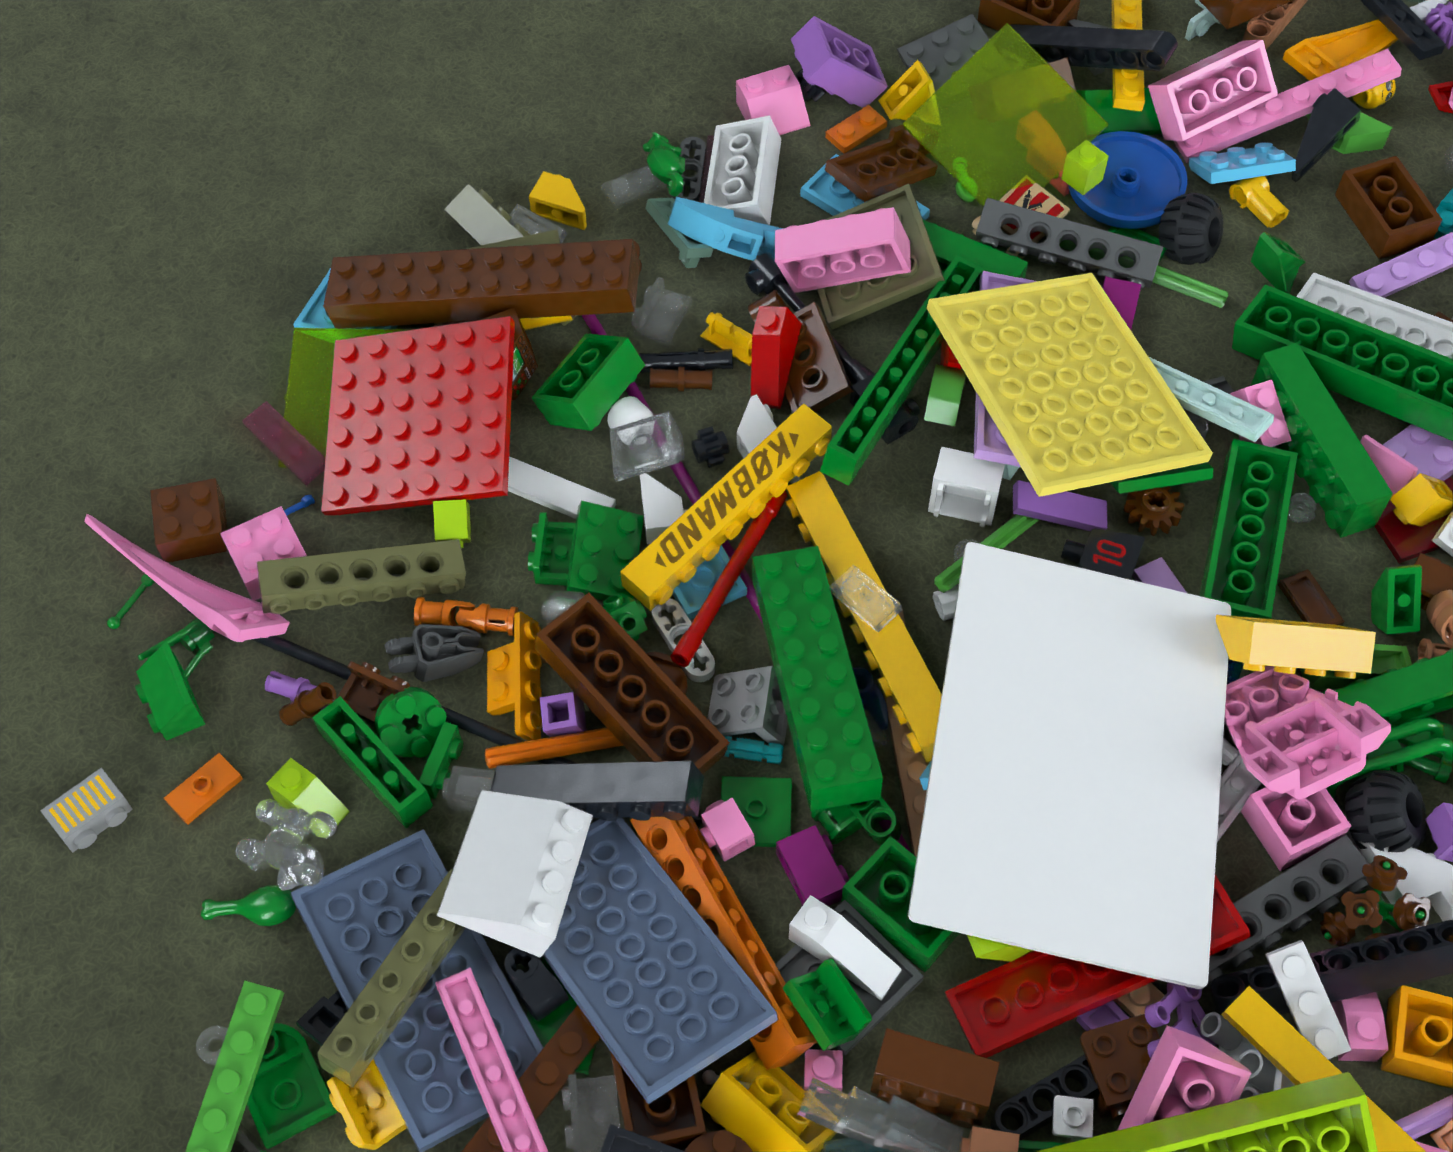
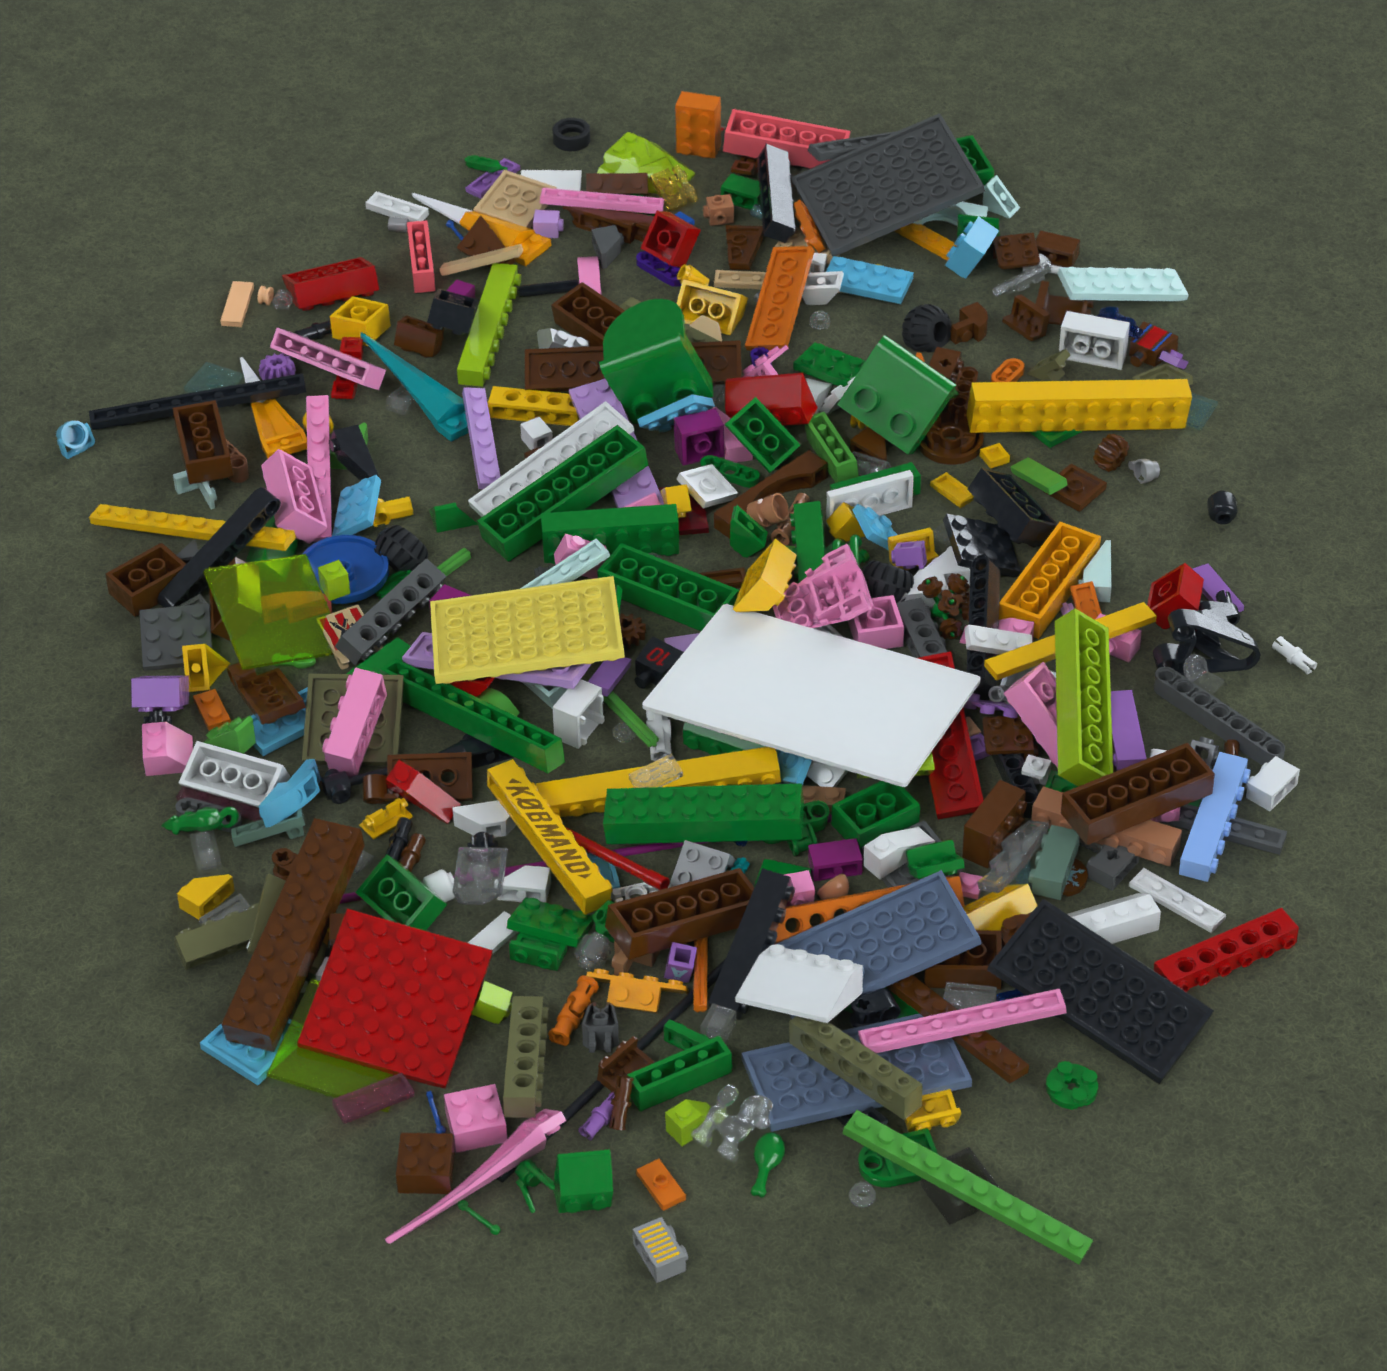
camera: 75 degrees left, 15 degrees down
(405, 704) = (654, 1043): green plate -> none
(753, 883) = (834, 888): none -> nougat brick
(801, 153) = (234, 736): none -> bright green slope
(1388, 207) = (430, 447): reddish brown brick -> none

